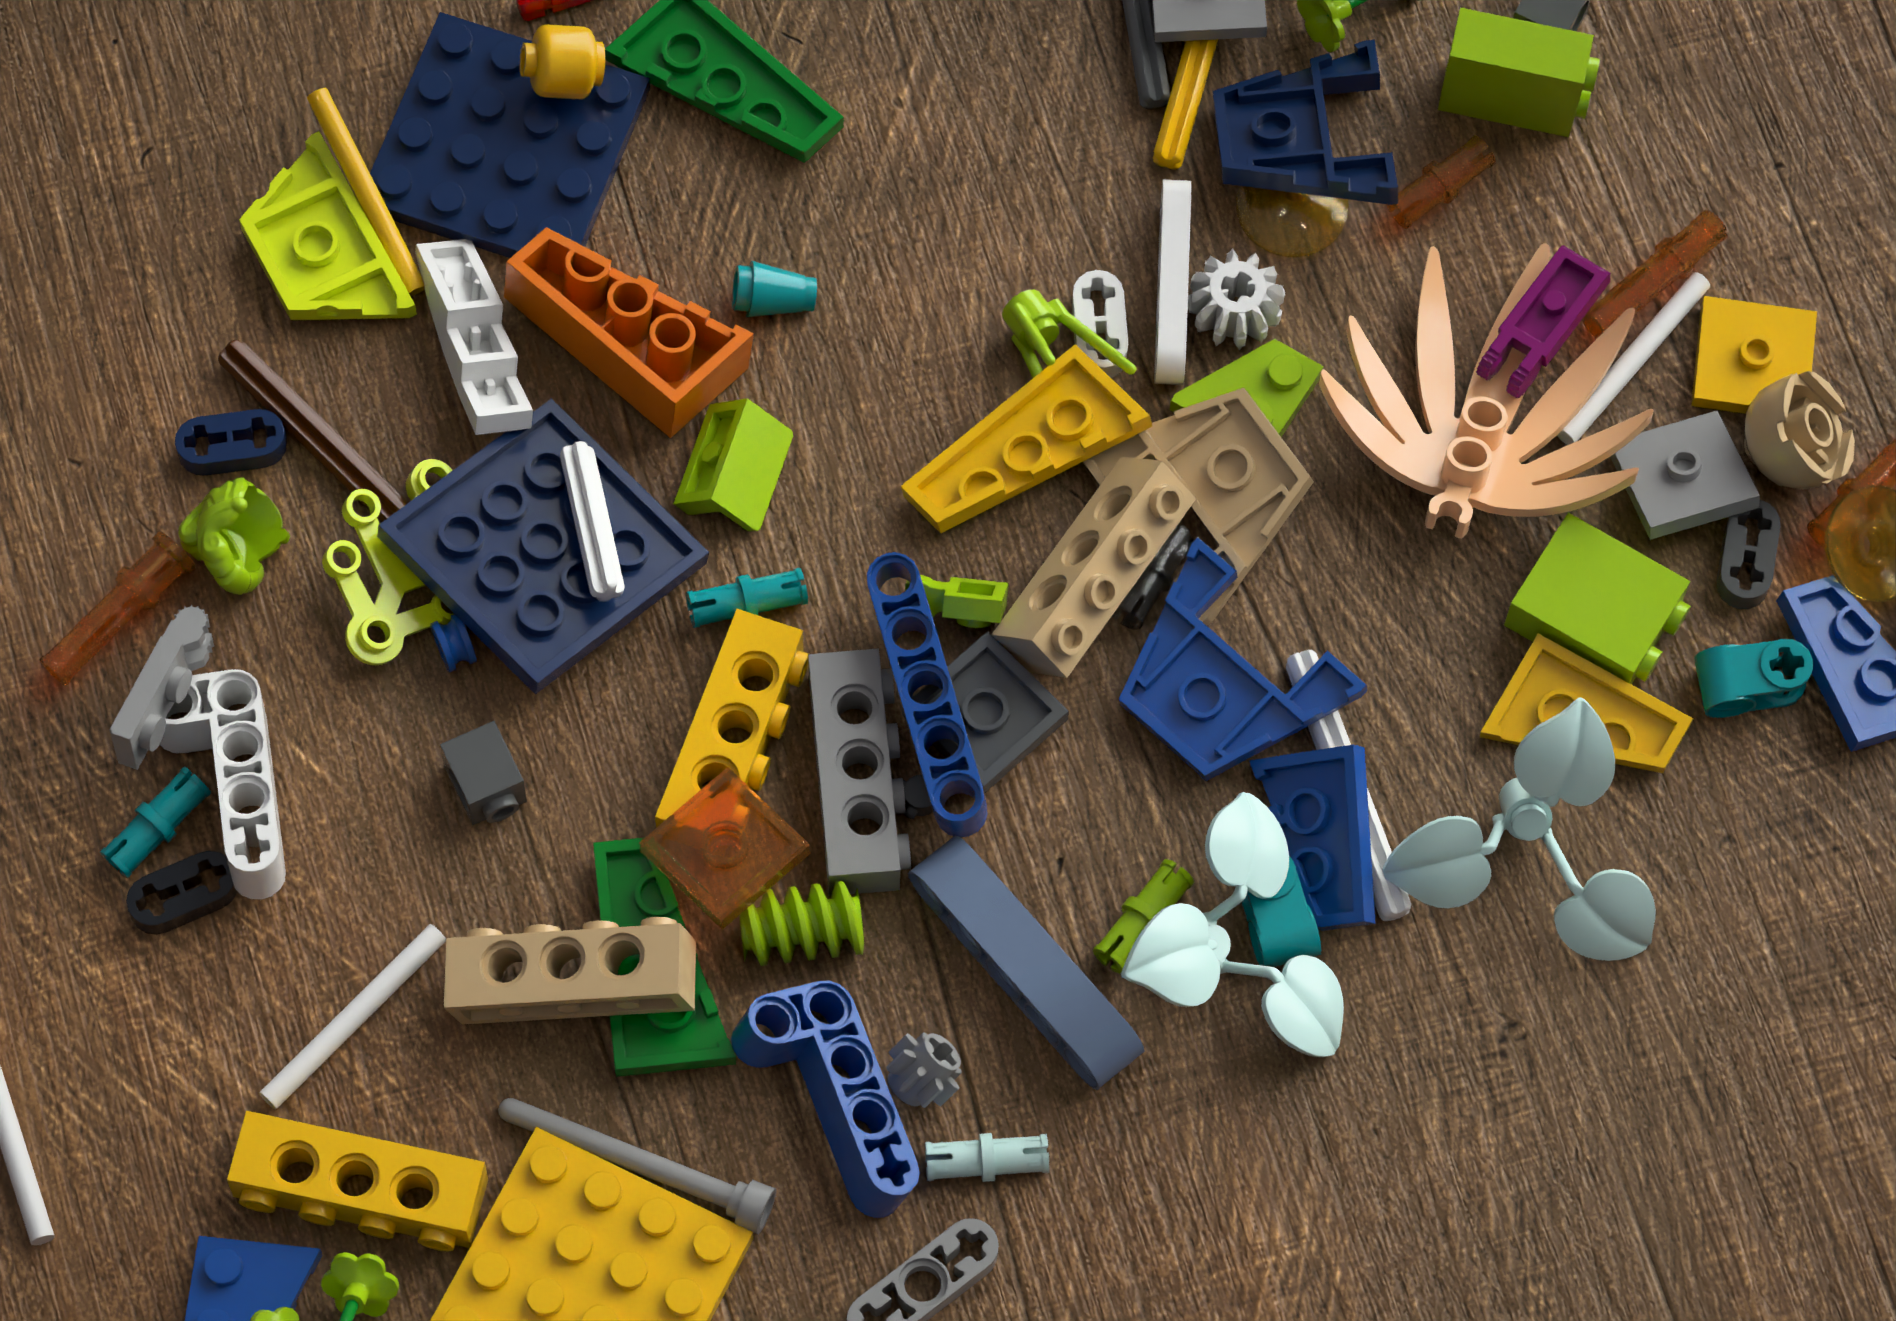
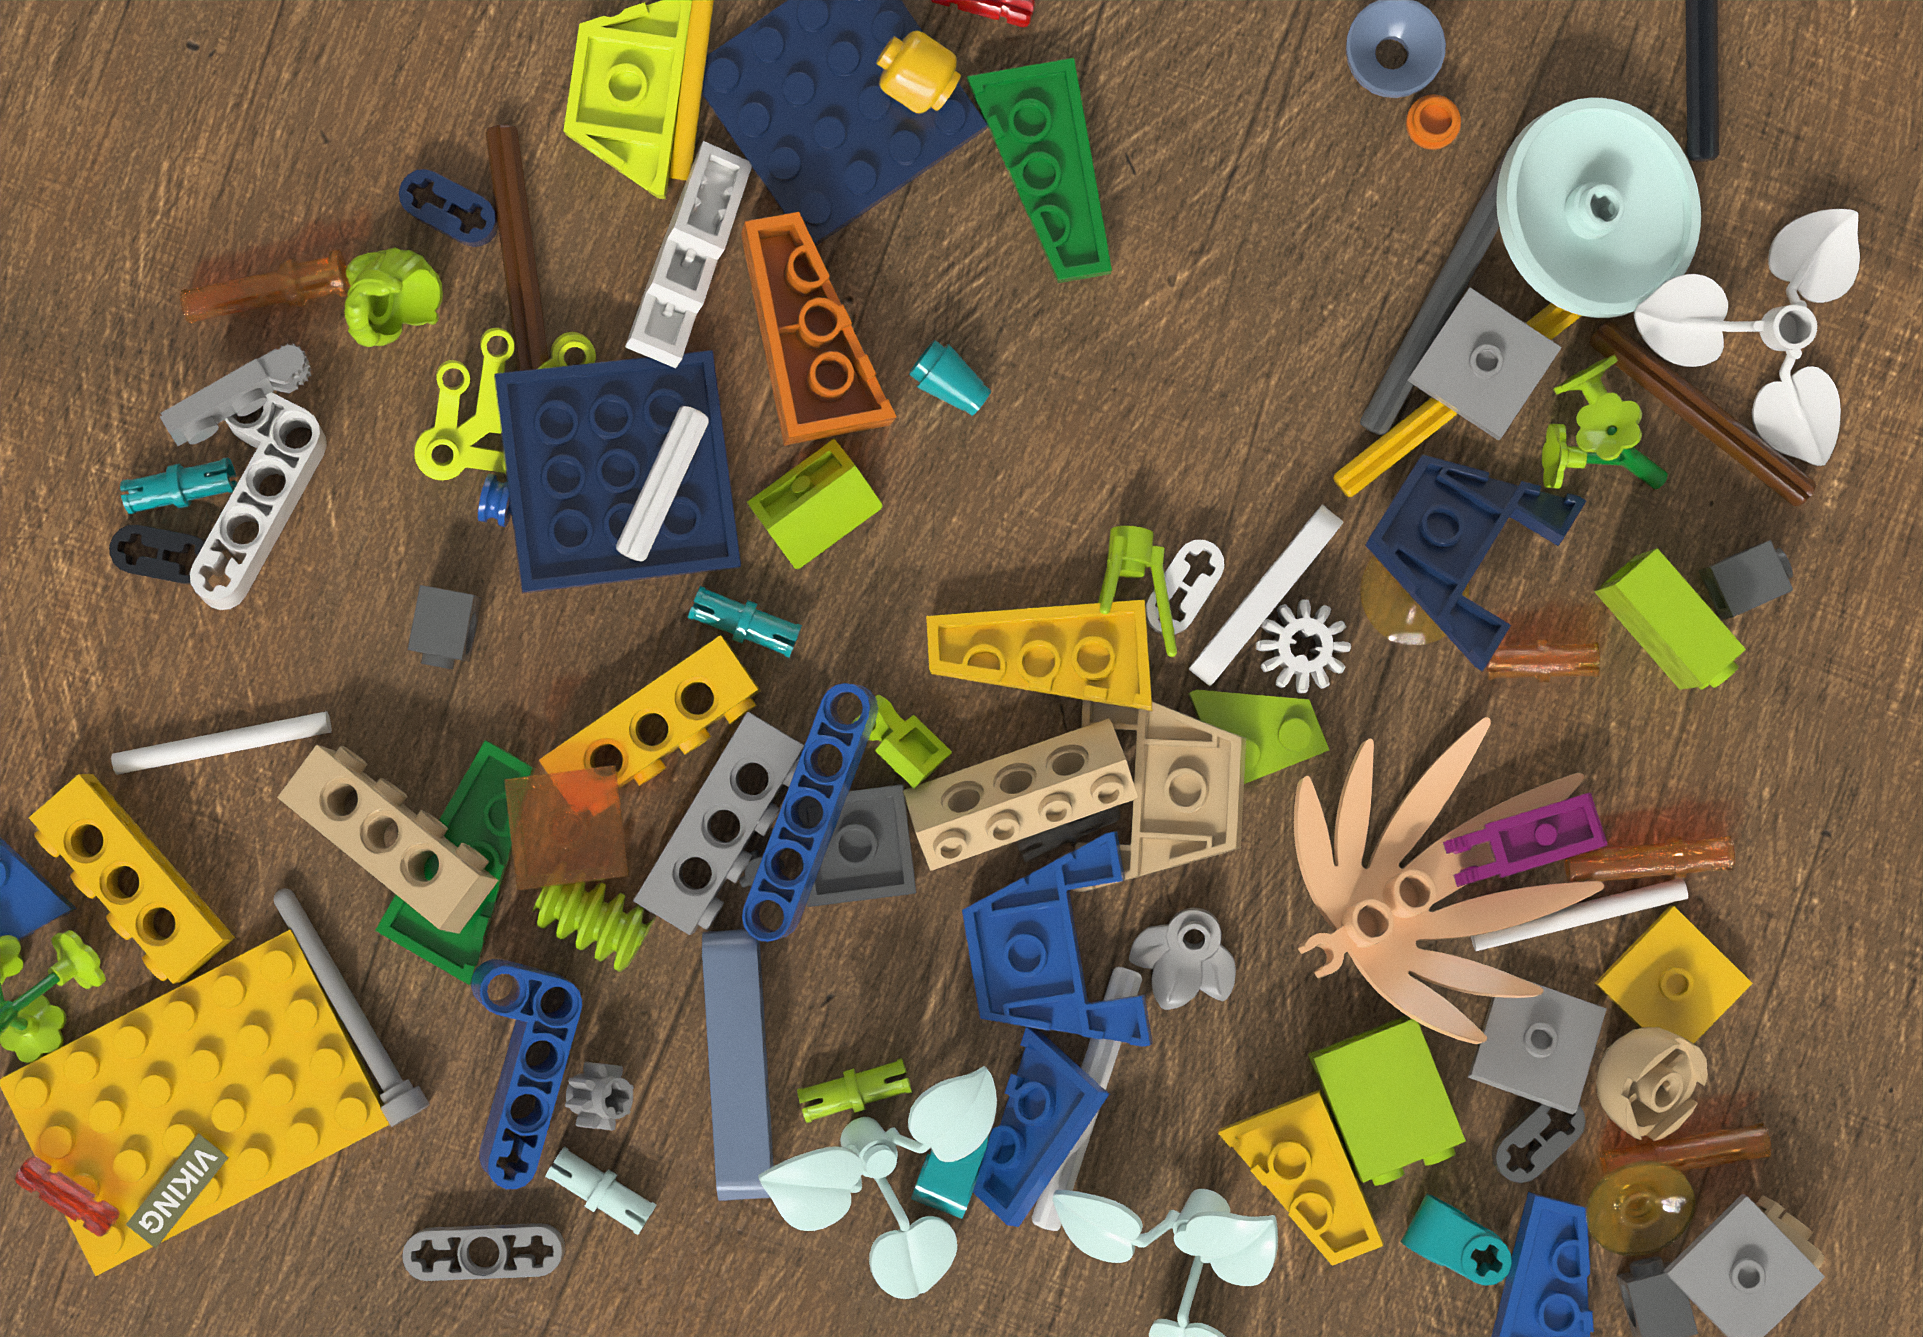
camera: 40 degrees right, 20 degrees up
(1342, 621) = (1182, 966): none -> light grey plate

